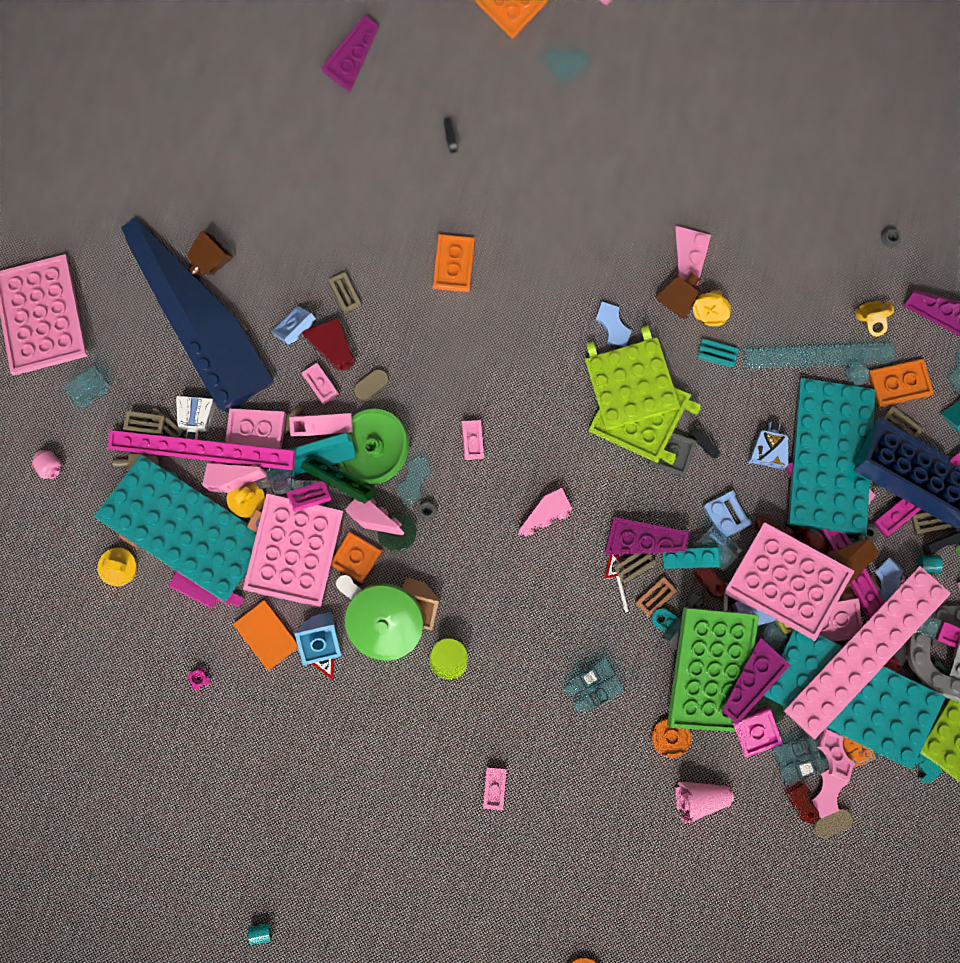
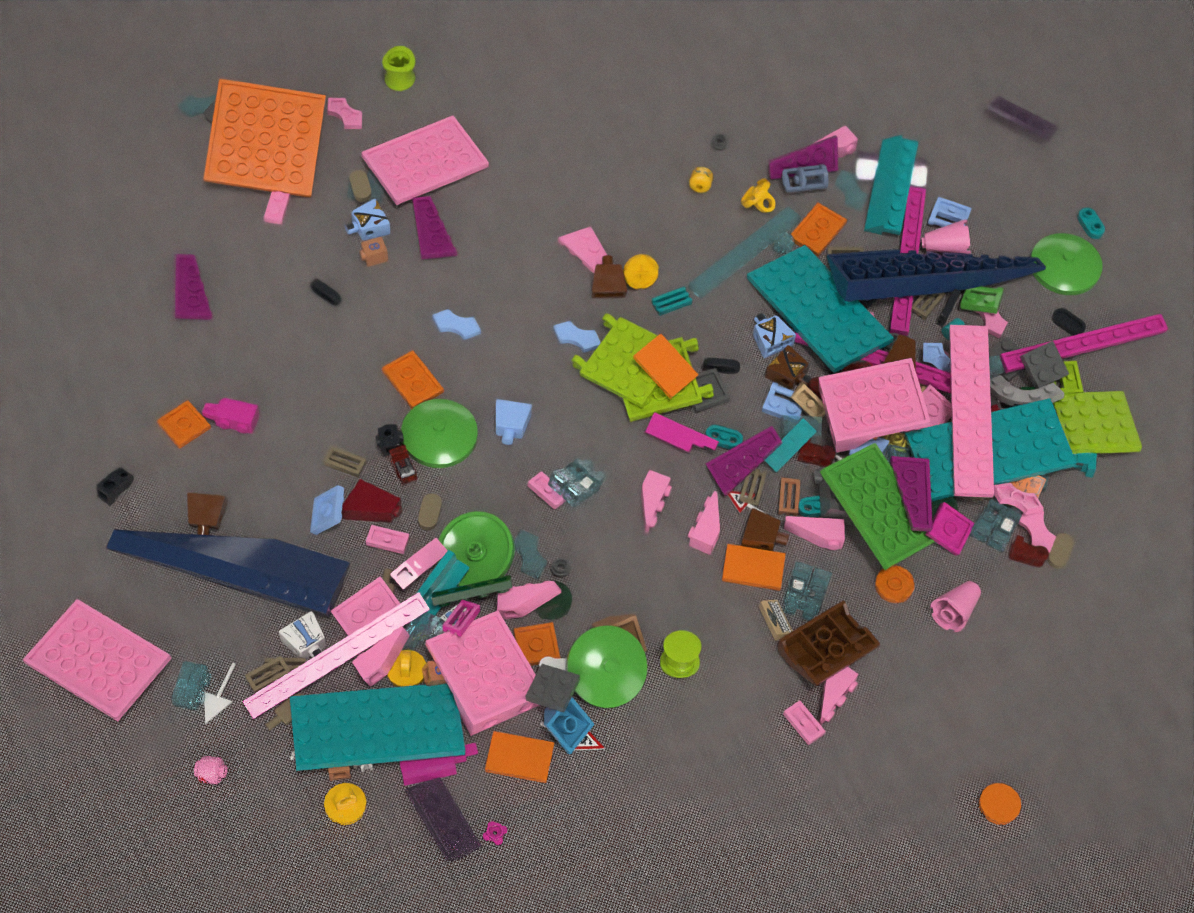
camera: 45 degrees left, 20 degrees down
(95, 413) = (214, 703): none -> white piece
(164, 180) = (113, 485): none -> black leg
(171, 637) = (443, 819): none -> clear purple slope
(255, 167) = (183, 424): none -> orange tile
(295, 189) = (233, 415): none -> dark pink hinge
(325, 608) = (552, 688): none -> dark grey plate
(382, 331) = (402, 465): none -> clear red leg
(389, 302) = (389, 438): none -> black brick
(434, 324) = (439, 433): none -> bright green dish
(478, 29) = (277, 207): none -> bright pink plate
(496, 358) = (512, 419): none -> light blue torso
(499, 451) = (577, 479): none -> clear light blue hips
(517, 127) = (373, 252): none -> nougat brick
(524, 234) = (449, 322): none -> light blue tile
(536, 96) = (368, 221): none -> light blue torso
(544, 782) = (834, 692): none -> bright pink slope
(551, 688) = (775, 618): none -> slope
(556, 59) = (360, 185): none -> dark tan tile
(563, 573) = (707, 530): none -> bright pink slope
(566, 748) = (827, 644): none -> reddish brown piece
(573, 632) = (753, 567): none -> orange tile
(577, 145) = (431, 231): none -> magenta wing
(605, 611) = (763, 531): none -> reddish brown torso
(614, 474) = (678, 434): none -> dark pink piece
(629, 73) = (424, 159): none -> bright pink plate
(650, 411) = (665, 366): none -> orange tile
(651, 647) = (820, 531): none -> bright pink slope
(652, 504) = (724, 436): none -> teal plate
(745, 530) = (808, 401): none -> tan slope
(756, 490) = (788, 369): none -> reddish brown torso
(841, 262) = (701, 179): none -> yellow head
(929, 328) = (801, 181): none -> sand blue piece

